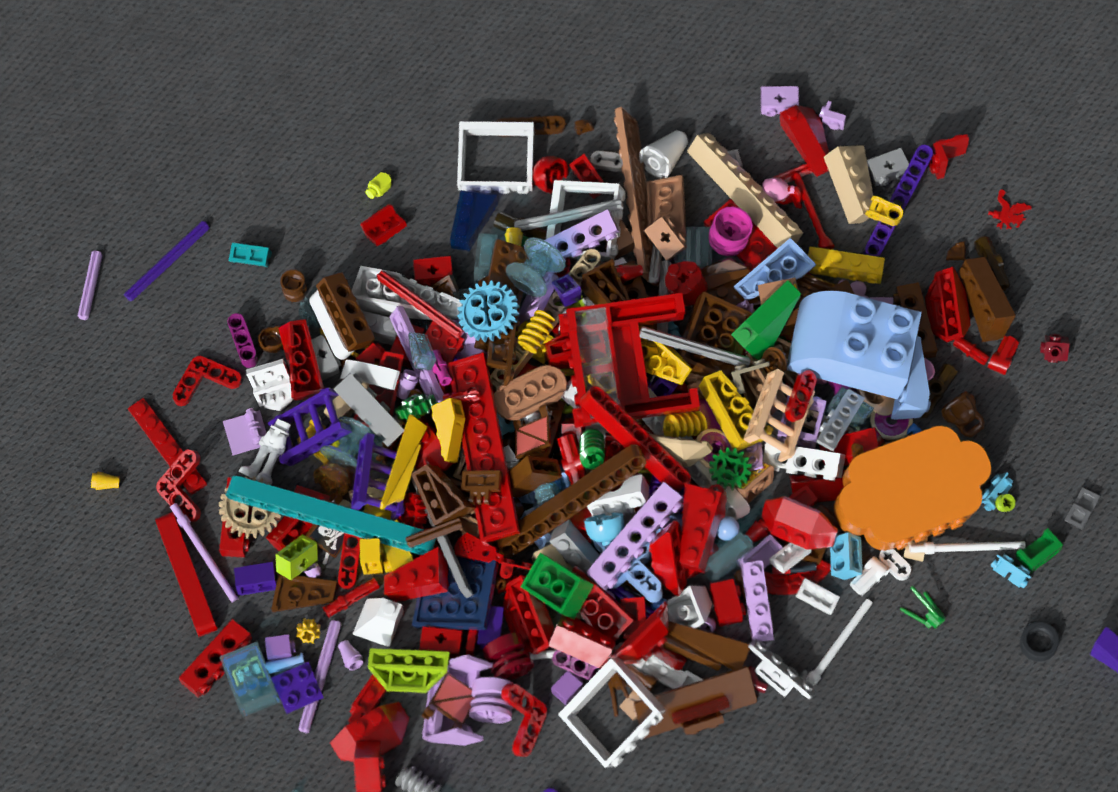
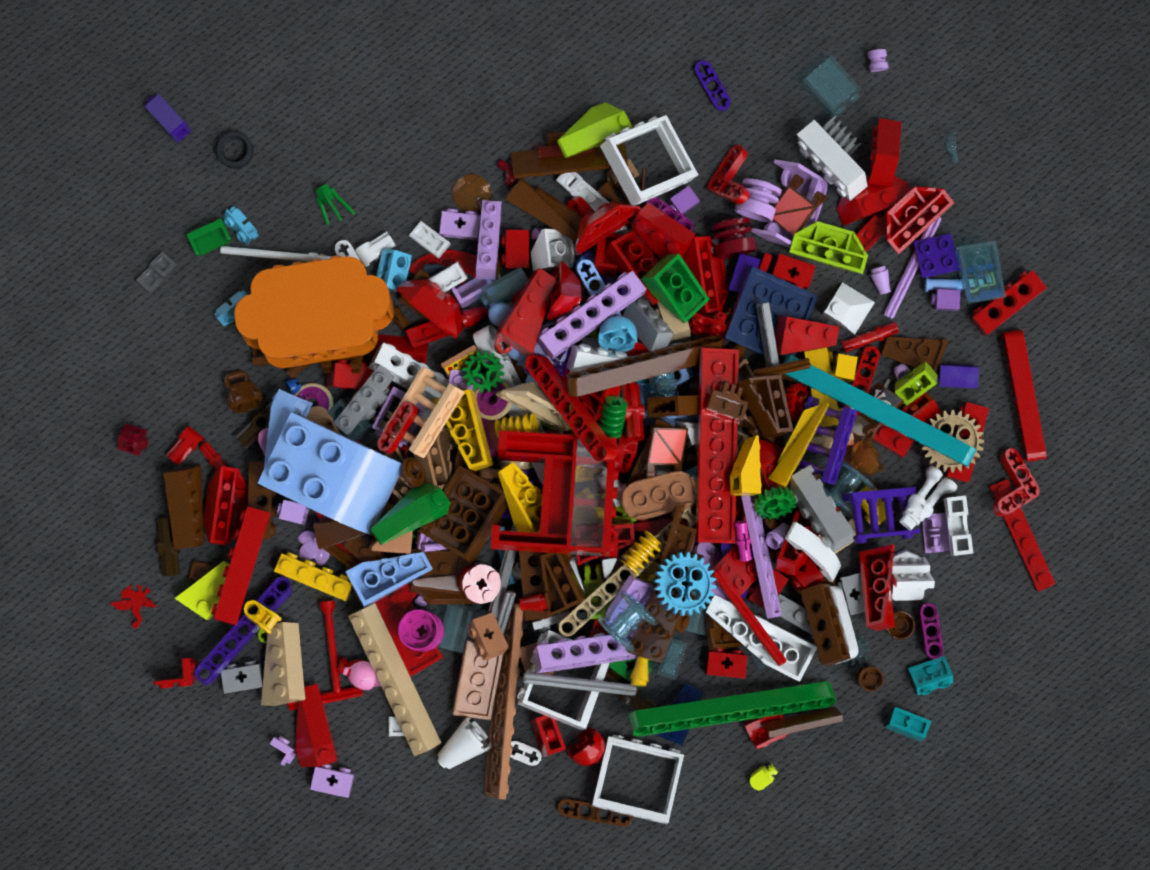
camera: 175 degrees left, 20 degrees up
(90, 284) = (1074, 731): lavender axle -> none
(104, 481) = (1089, 510): yellow cone -> none
(166, 261) = (992, 740): dark purple axle -> none
(184, 522) = (1018, 447): lavender bar -> none
(199, 373) = (979, 605): red beam -> none
(231, 434) = (956, 519): none -> white arch
(238, 302) = (931, 675): none -> teal bracket
(308, 630) = (916, 310): yellow gear -> none
(327, 717) = (914, 214): none -> red wedge
(350, 235) = (802, 722): none -> reddish brown tile
(420, 226) = (731, 709): none -> green beam
(422, 353) = (762, 549): clear light blue slope -> none
(423, 751) = (831, 160): none -> white brick
(464, 396) = (729, 500): red axle -> none
(476, 549) = (744, 343): red piece -> none
(567, 290) = (601, 594): dark purple slope -> none
(583, 126) = (543, 797): reddish brown tile -> none
(672, 738) = (593, 129): none -> lime wedge
(694, 347) = (489, 500): light grey axle -> none
(737, 378) = (443, 468): dark tan bracket -> none
(779, 674) = (484, 168): bracket -> none
(789, 648) = (470, 192): none -> clear orange dish
(800, 613) = (450, 229): none -> lavender brick
(814, 676) = (451, 164): white bar -> none
(916, 251) = (241, 566): none -> red brick
(941, 232) = (203, 593): none -> neon yellow wedge
(1010, 502) = (231, 296): lime bush -> none

